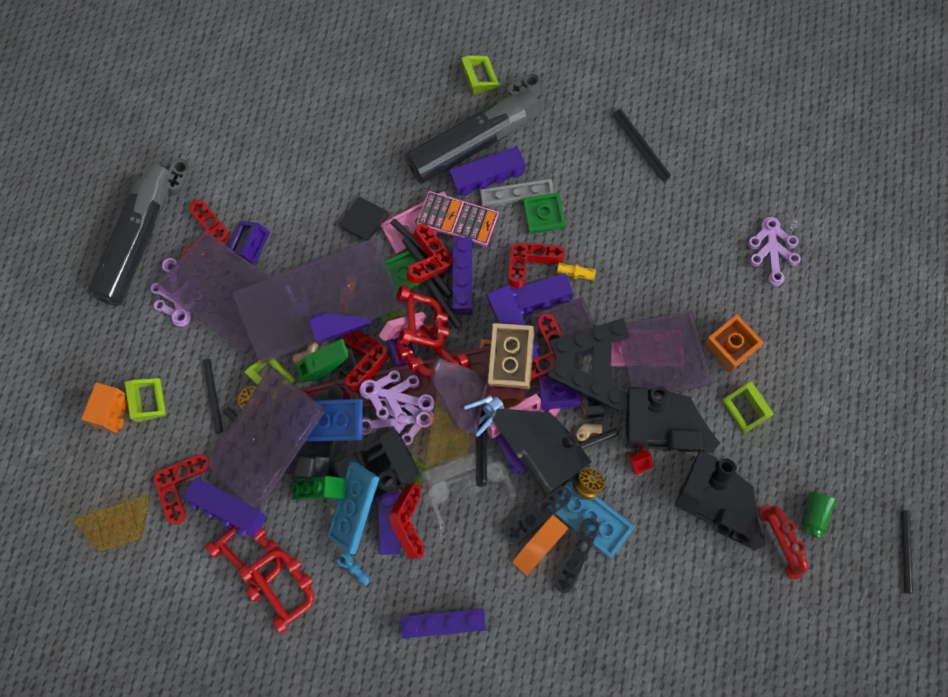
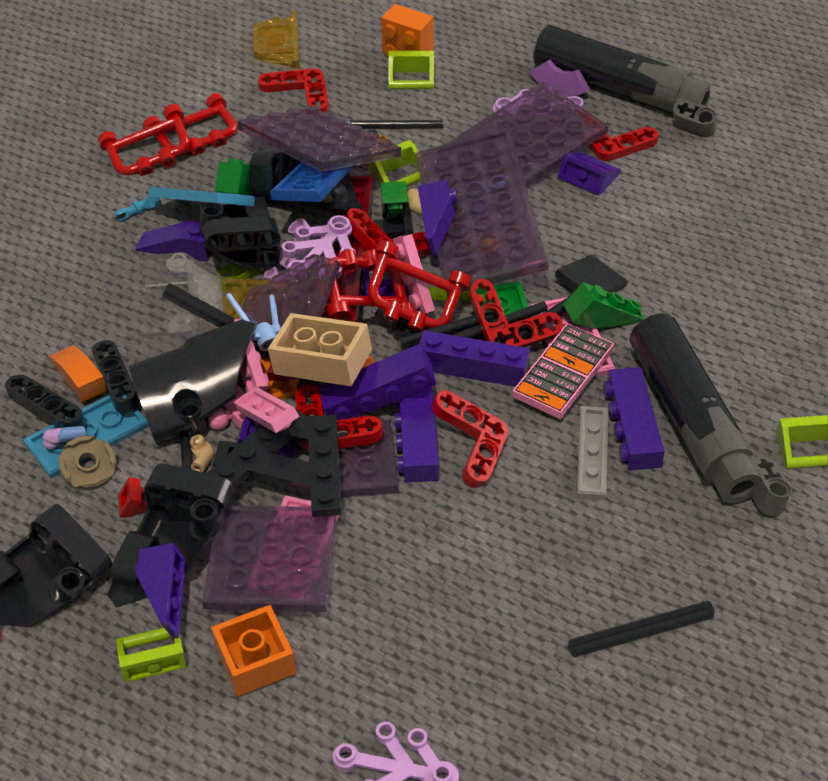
camera: 100 degrees right, 25 degrees down
(140, 286) = (565, 82): none -> medium lavender tile
(224, 507) = (271, 97): dark purple brick -> none
(398, 203) = (597, 308): none -> green slope
(401, 522) = (163, 237): red beam -> none
(443, 623) = (32, 265): dark purple brick -> none
(544, 213) = (549, 473): green plate -> none
(566, 381) = (266, 409): none -> bright pink plate
(576, 271) = (442, 490): yellow pin -> none
(588, 485) = (127, 430): pearl gold wheel -> none
(608, 525) = (54, 436): none -> arm
(614, 512) = (87, 478): none -> dark tan tile
(711, 409) = (162, 578): none -> dark purple slope

